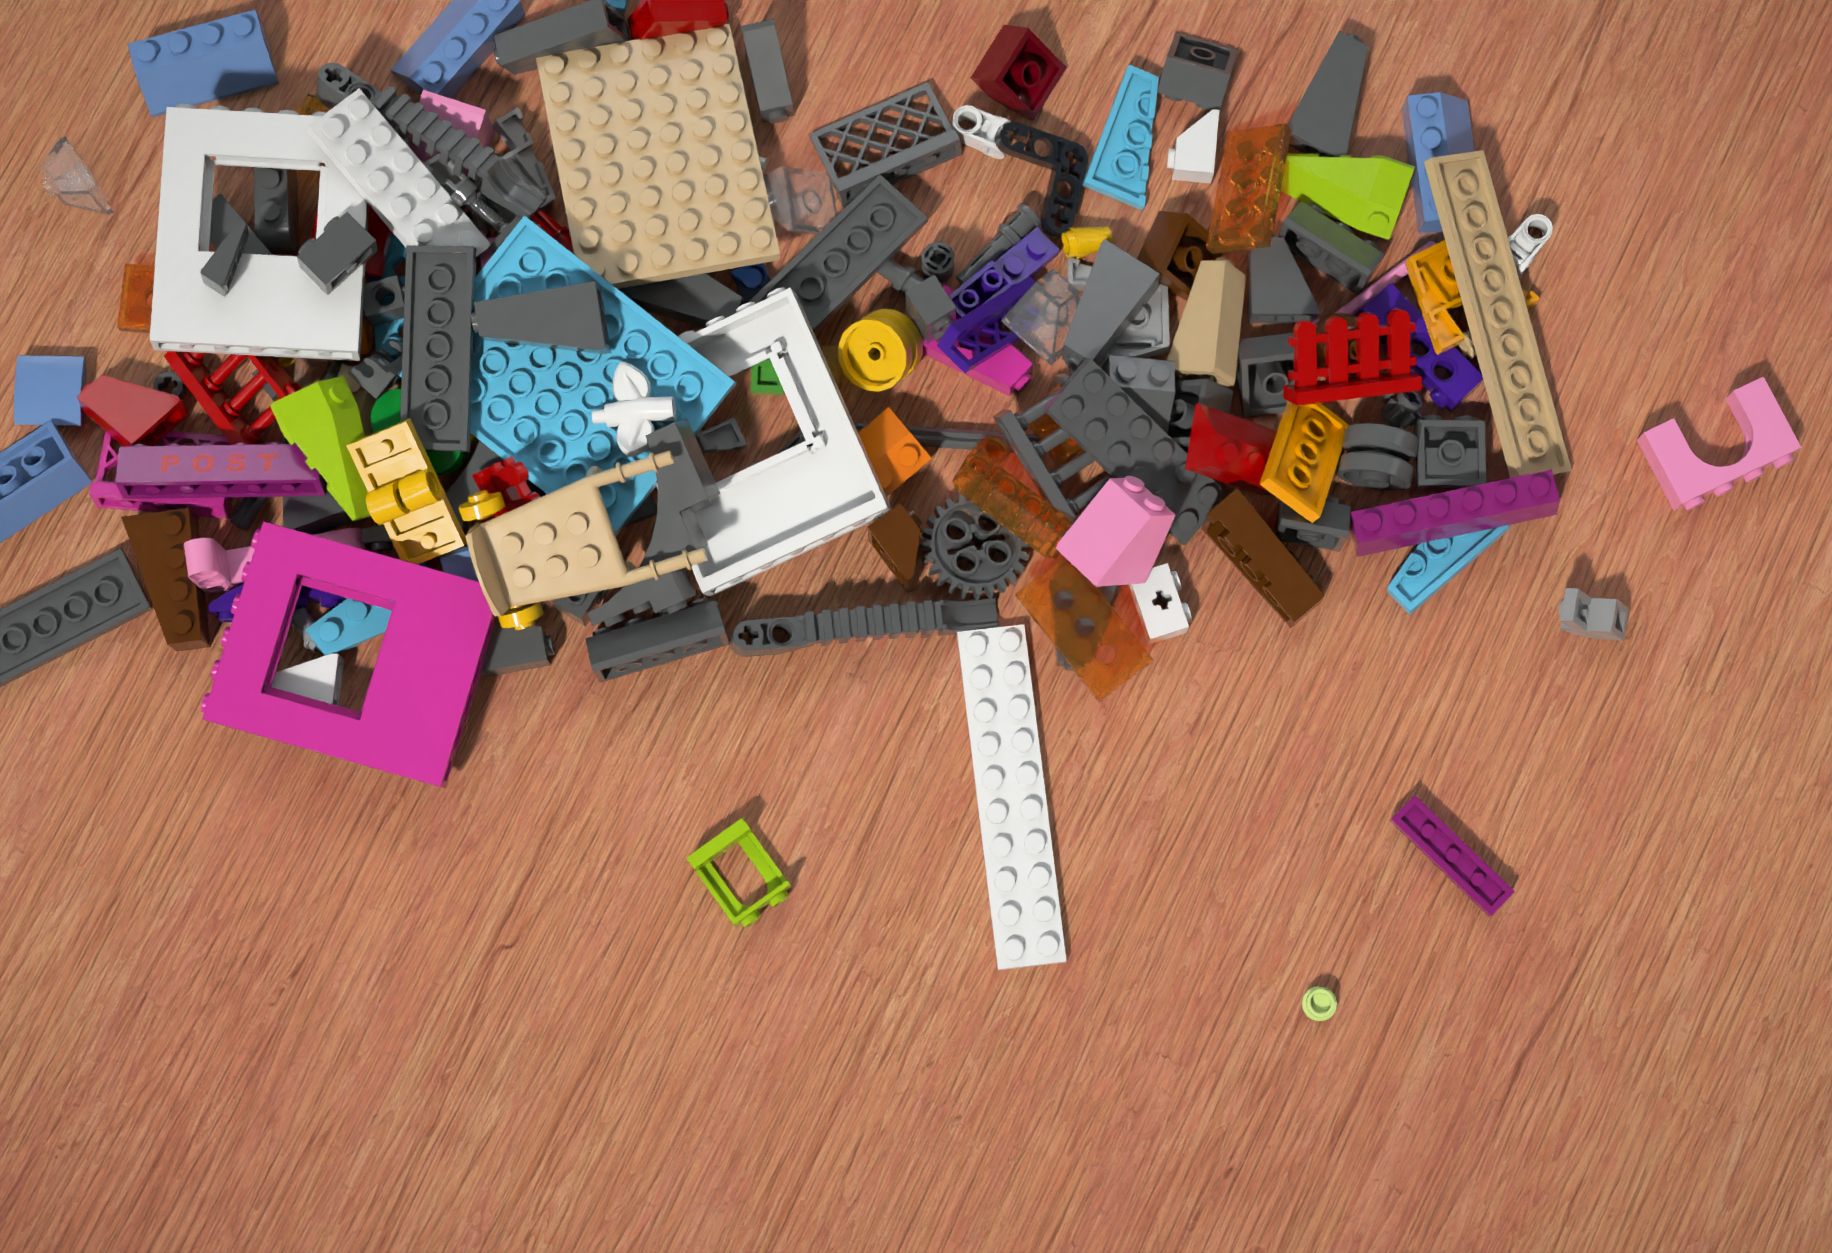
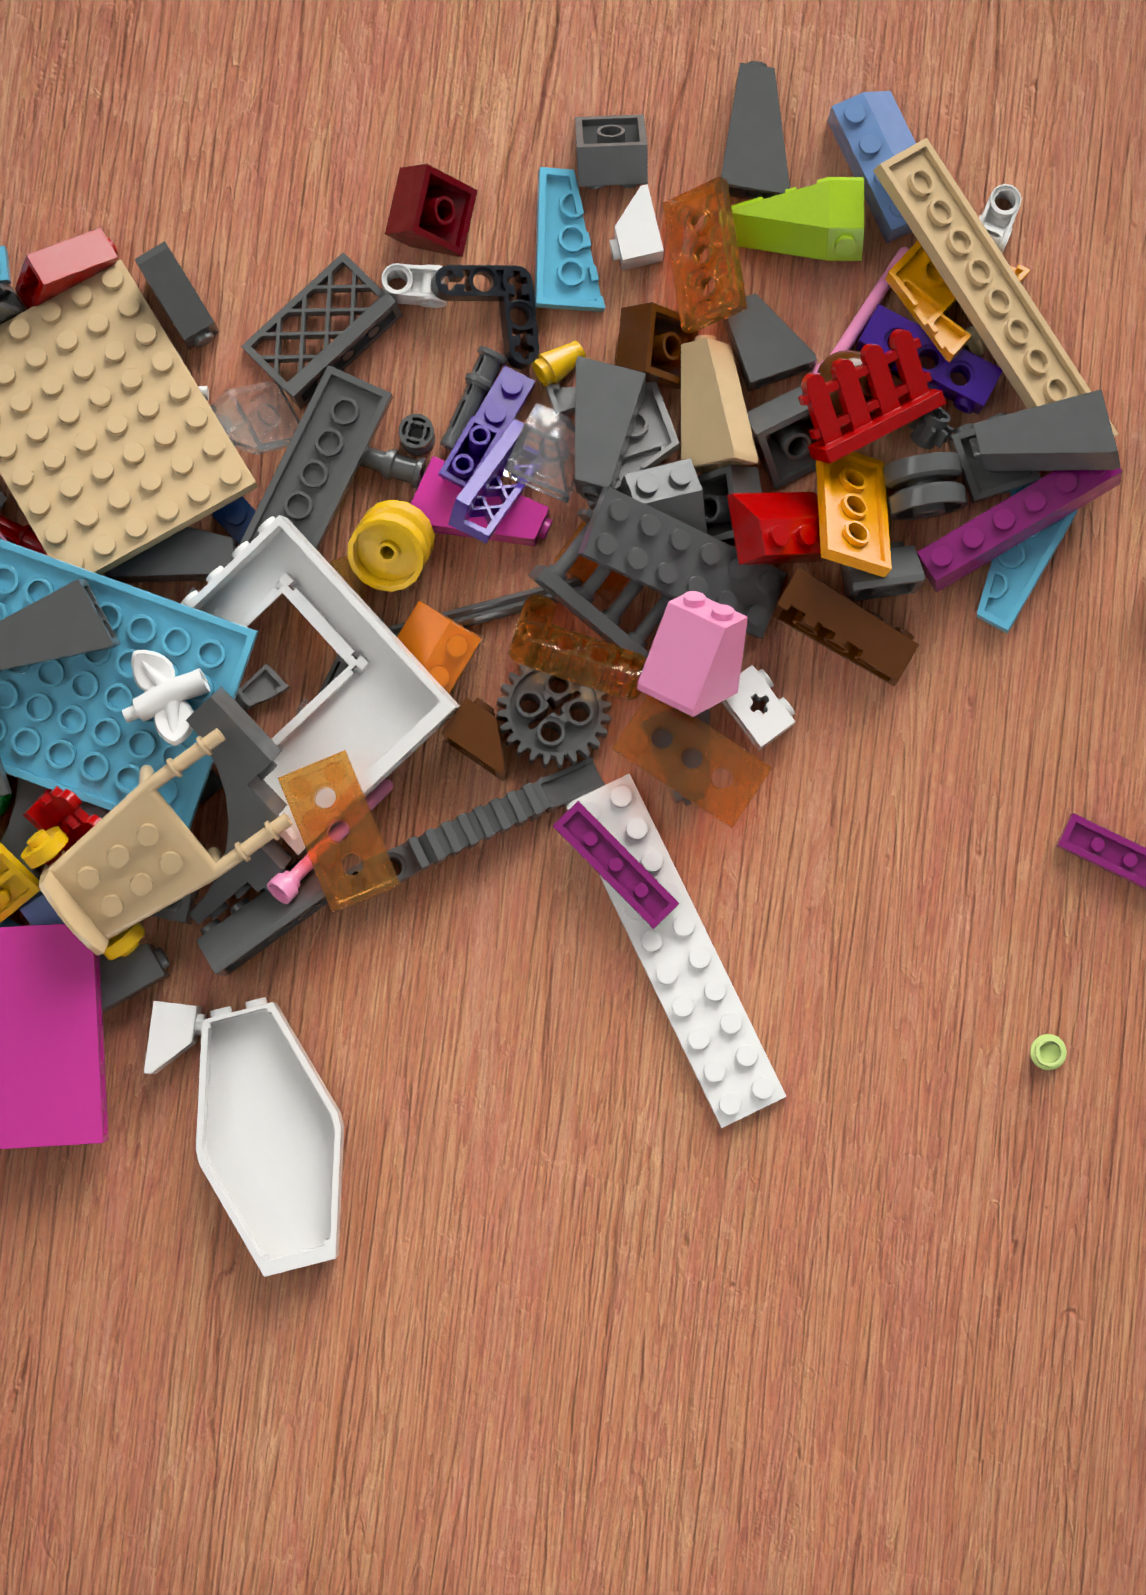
camera: 20 degrees left, 5 degrees up
(534, 715) = (171, 1033): none -> white slope
(589, 837) = (269, 1137): none -> white container
(682, 614) = (285, 885): none -> bright pink piece
(764, 597) = (315, 823): none -> clear orange plate
(765, 380) = (285, 614): bright green plate -> none
(776, 882) = (439, 1158): lime panel -> none
(930, 309) = (429, 488): dark grey brick -> none
(983, 699) = (616, 865): none -> magenta plate
(1331, 247) = (806, 287): dark grey slope -> none
(1503, 448) = (1049, 437): none -> dark grey slope

